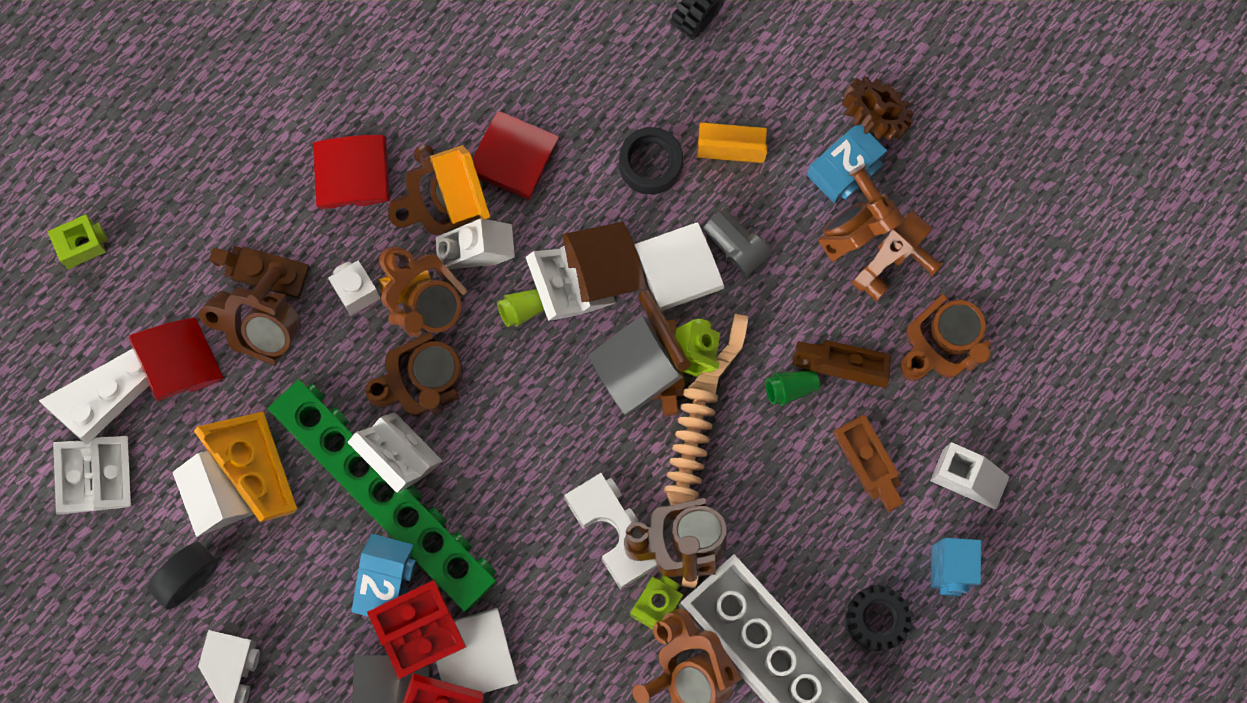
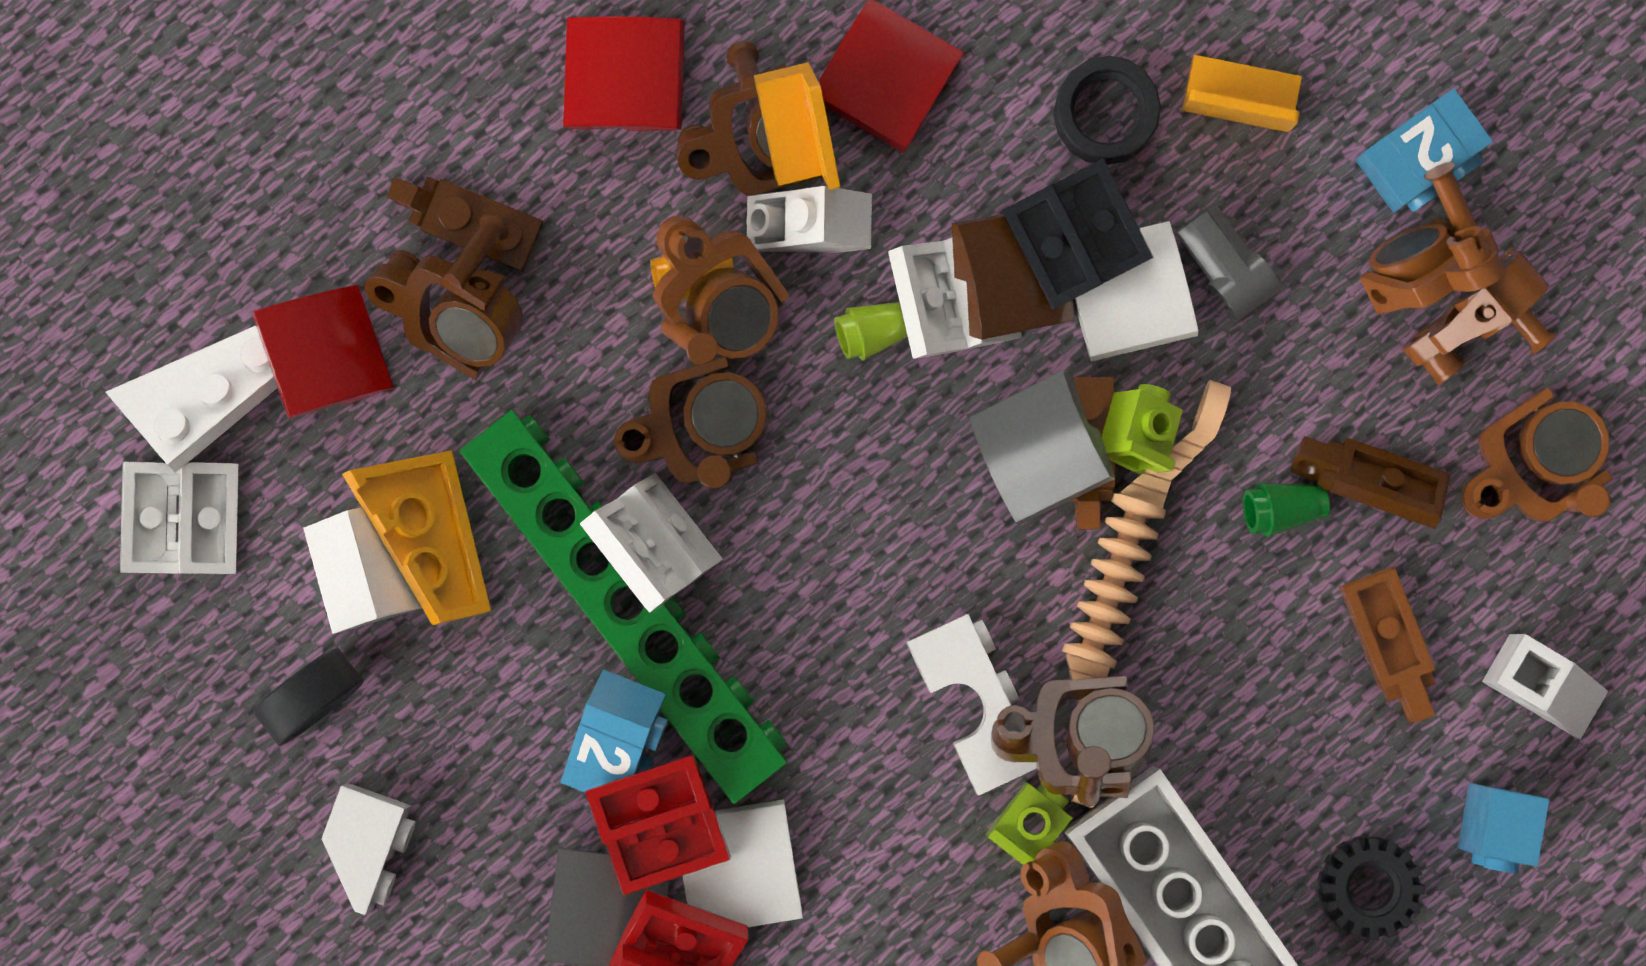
camera: 15 degrees right, 10 degrees up
(67, 236) = (164, 137): lime brick -> none
(353, 287) = (610, 267): white brick -> none
(641, 233) = (1078, 233): none -> black slope
(664, 330) = (1094, 398): reddish brown bar -> none
(877, 108) = (1487, 67): reddish brown gear -> none

